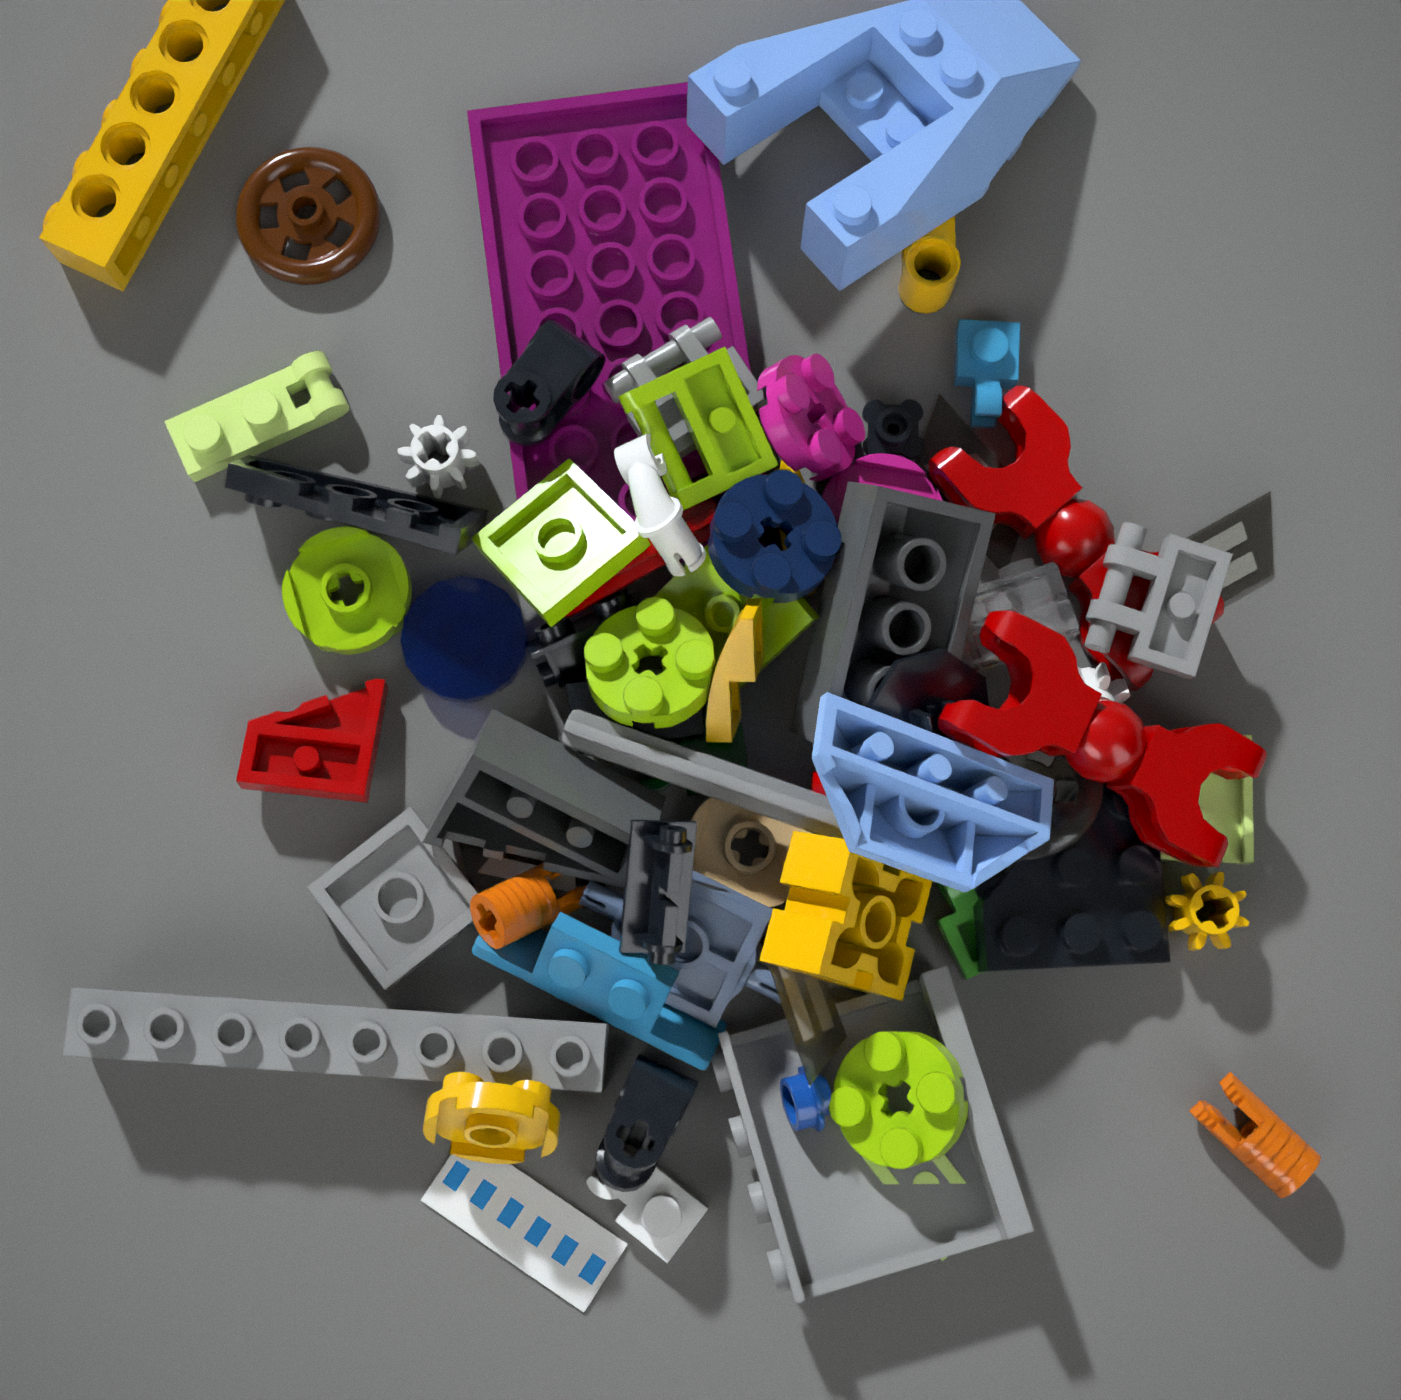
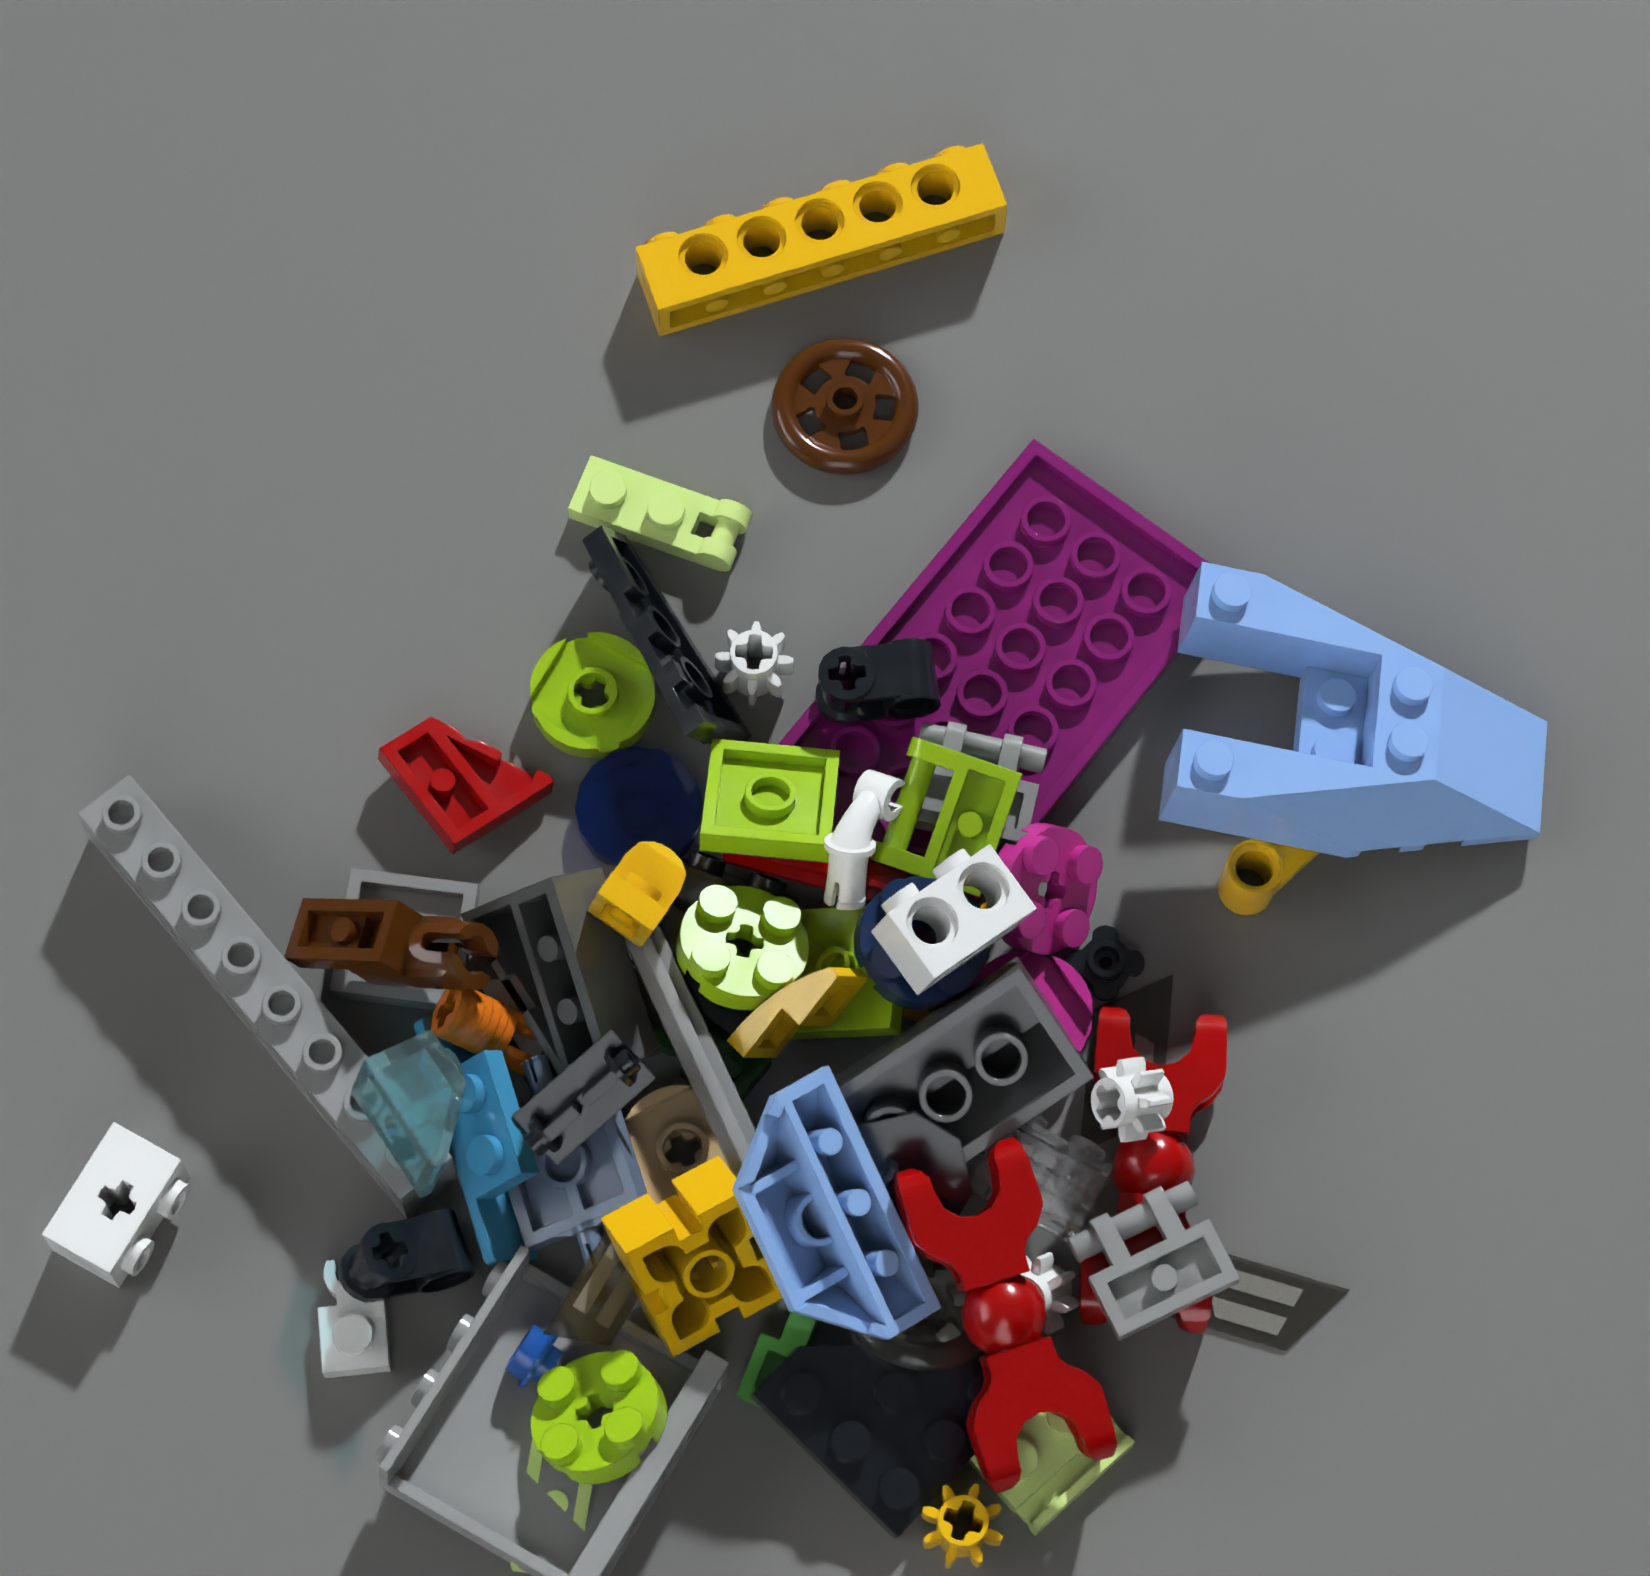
camera: 45 degrees right, 10 degrees down
(386, 1338) = (118, 1171): none -> white brick
(397, 919) = (389, 943): none -> reddish brown plate
(492, 1119) = (309, 1146): yellow plate -> none
(527, 1226) = (255, 1251): white sticker -> none
(548, 699) = (639, 891): none -> yellow plate
(549, 1020) = (413, 1104): none -> clear light blue slope
(802, 500) = (959, 927): none -> white brick
(988, 363) = (1228, 983): dark azure plate -> none
(1034, 502) = (1132, 1099): none -> white gear

